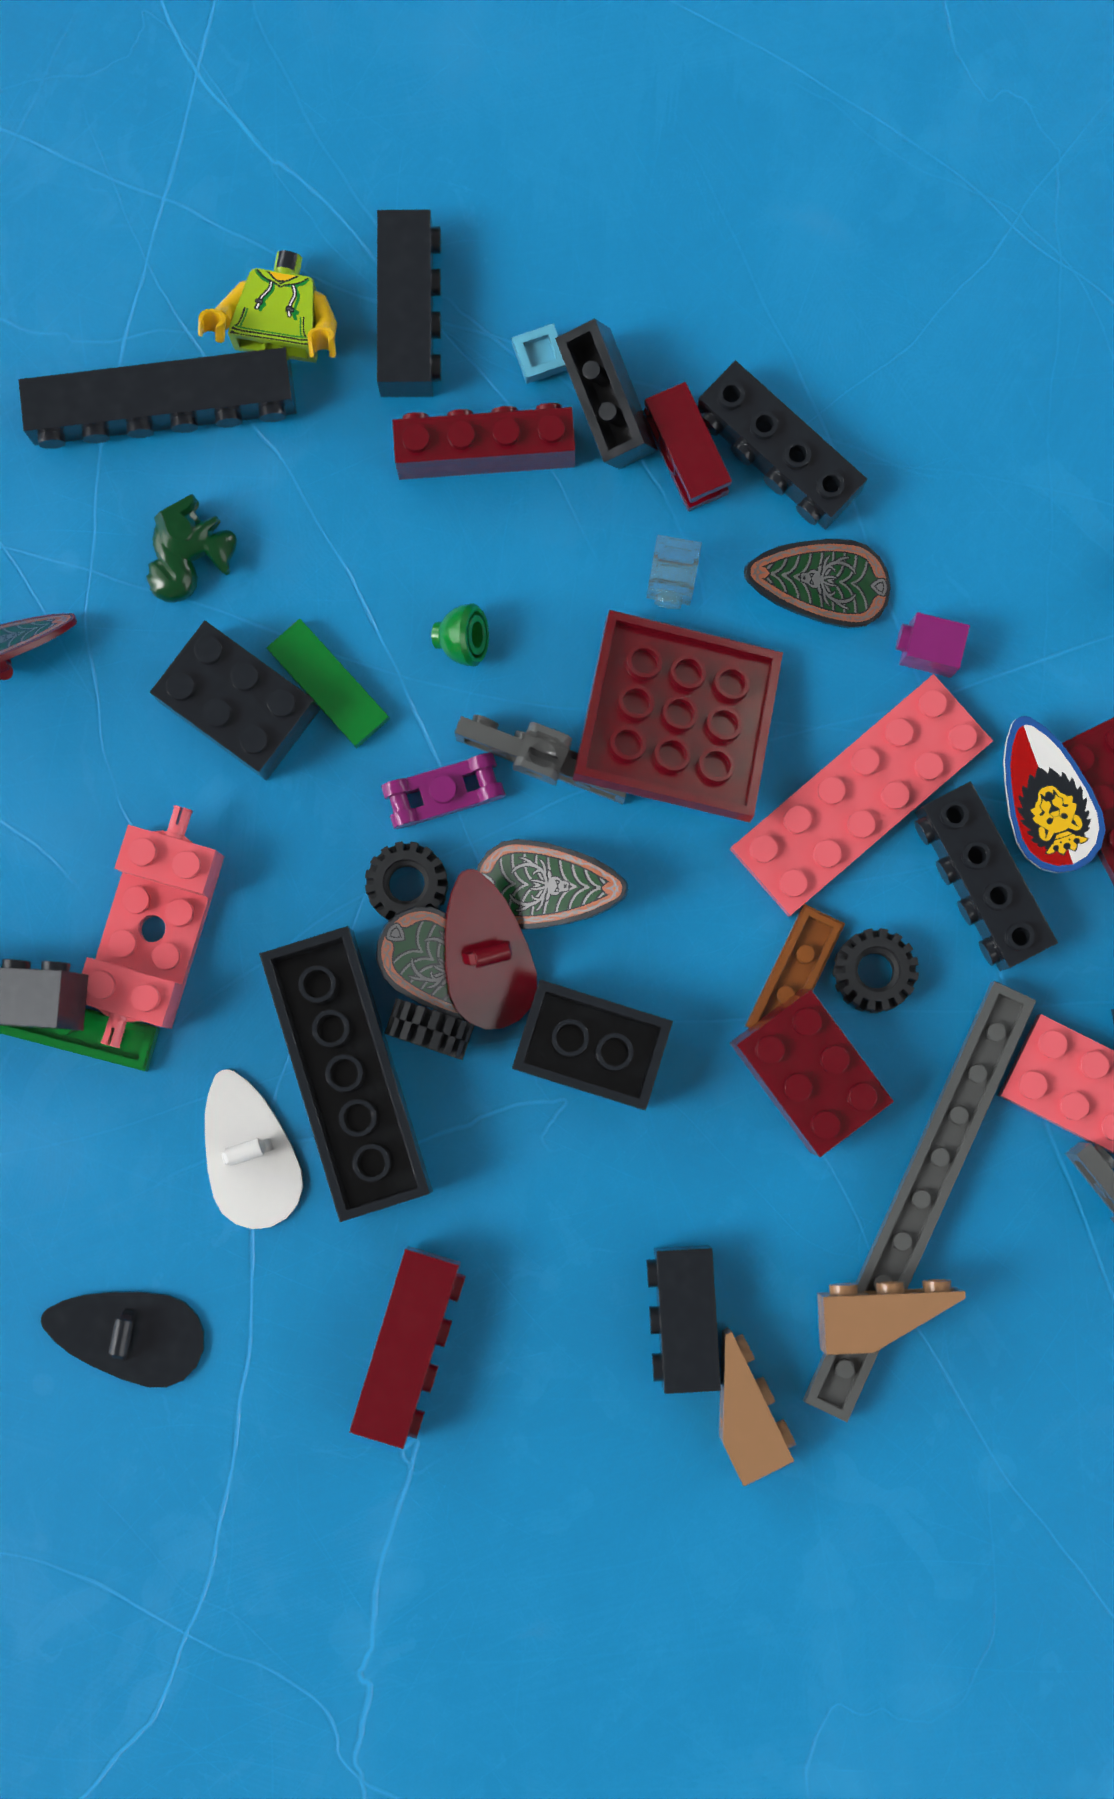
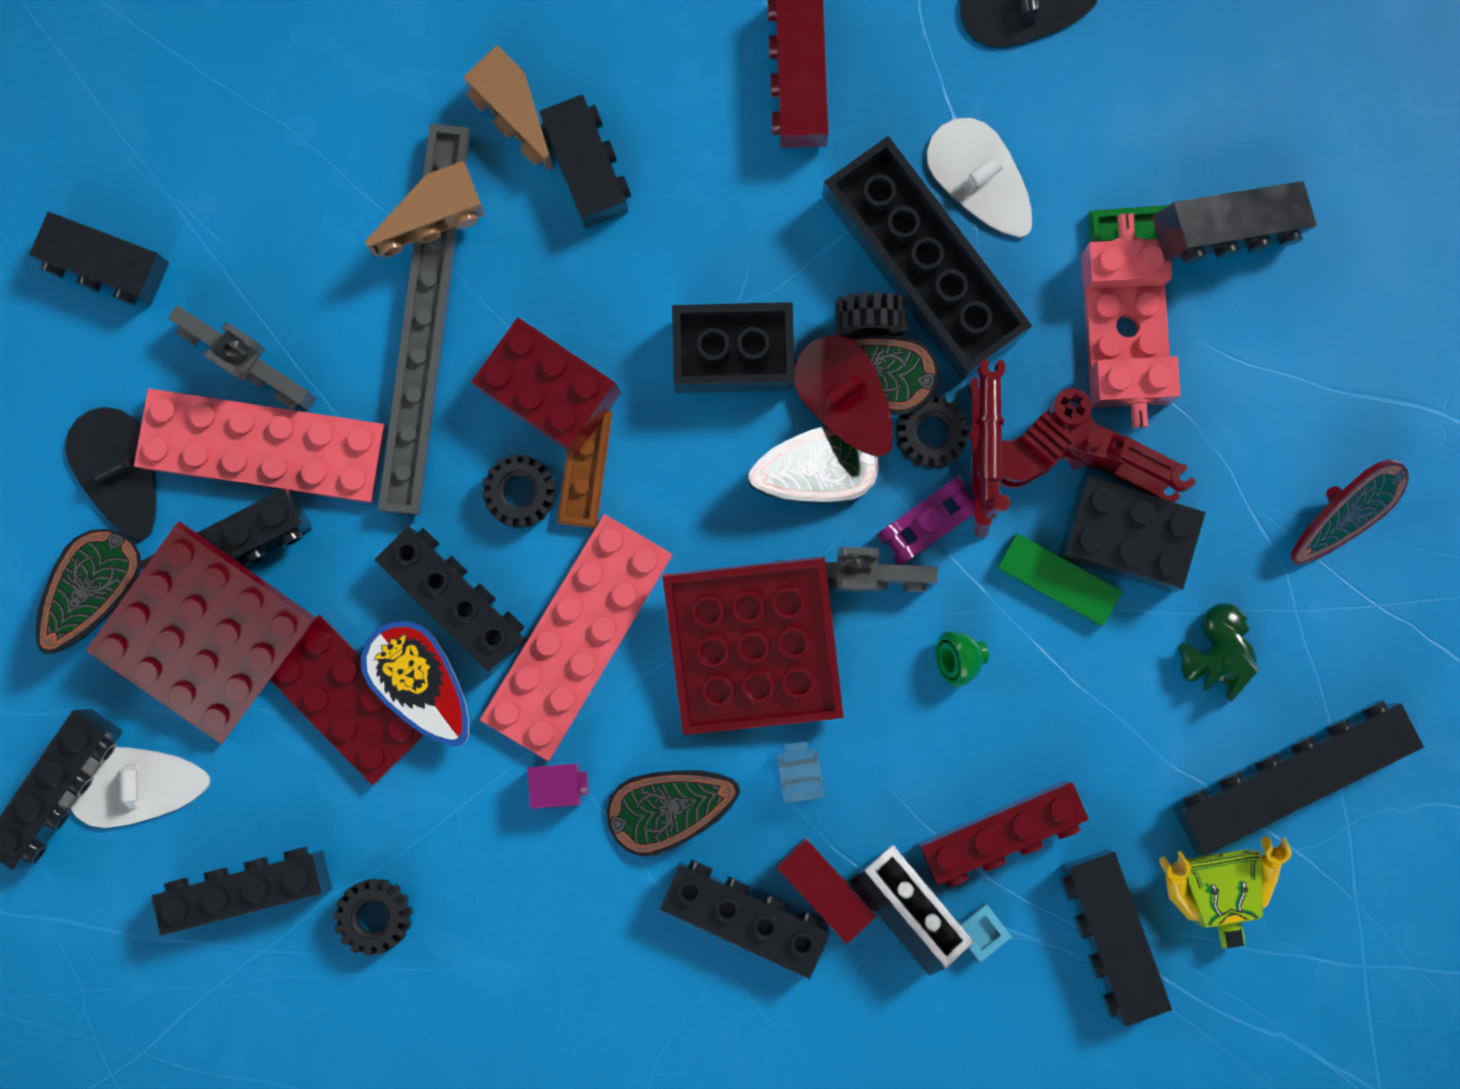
camera: 165 degrees right, 0 degrees up
(292, 821) = (1046, 442): none -> dark red piece

